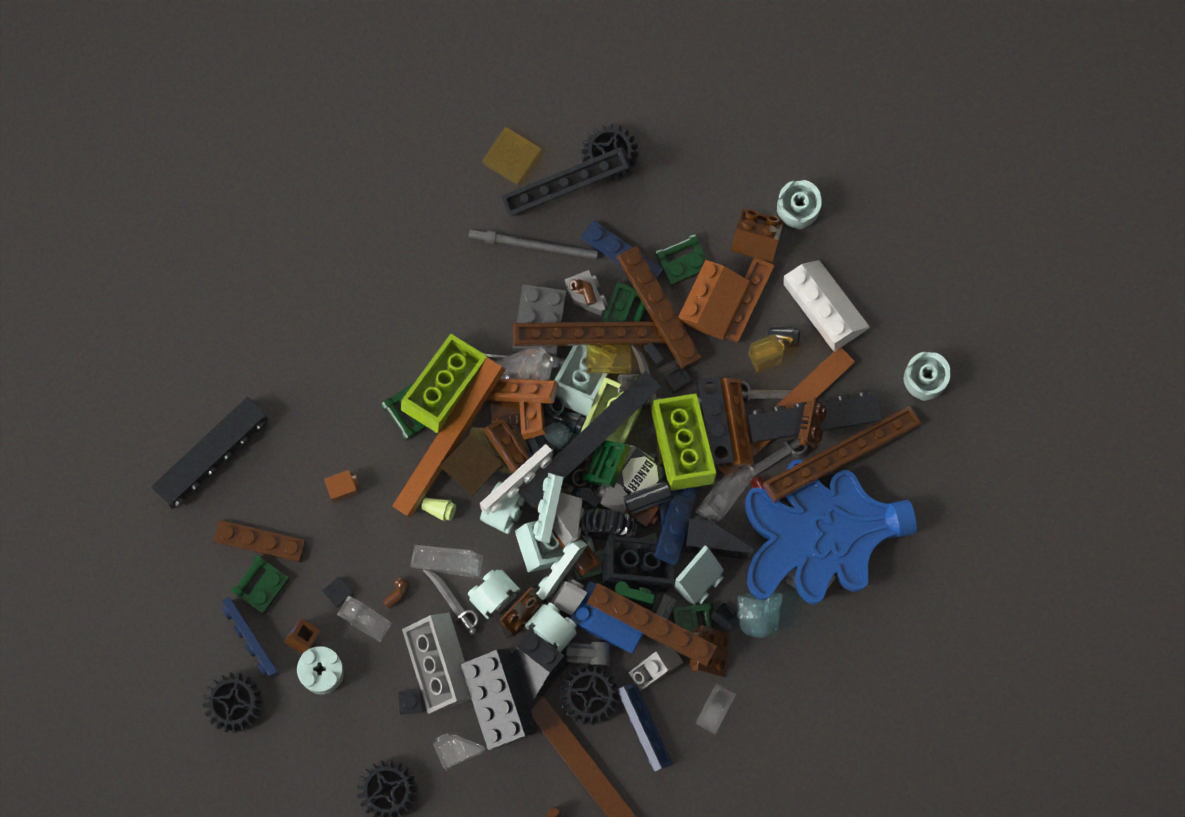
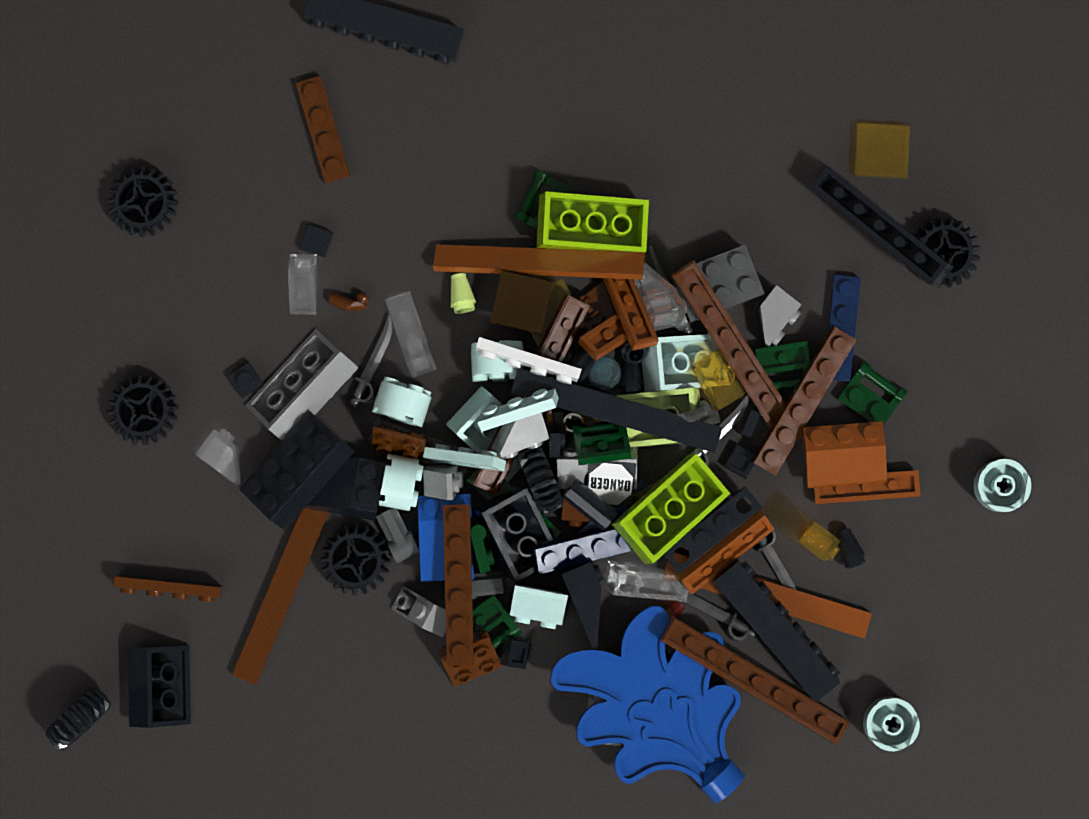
camera: 65 degrees right, 10 degrees up
(243, 630) = (211, 189): dark blue plate -> none
(265, 590) = (278, 166): dark green plate -> none
(302, 636) = (248, 232): reddish brown brick -> none
(329, 679) = (210, 266): light aqua brick -> none
(342, 486) = (427, 180): dark orange brick -> none
(491, 237) = (781, 181): flat silver bar -> none
(583, 288) = (778, 312): reddish brown arm -> none
(645, 727) = (354, 635): dark blue plate -> none
(715, 709) = (415, 696): clear slope -> none
(757, 235) = (943, 460): reddish brown slope -> none
(757, 616) = (532, 690): clear light blue hair -> none
(817, 413) = (756, 640): reddish brown hinge -> none
(825, 304) = (909, 573): white slope -> none

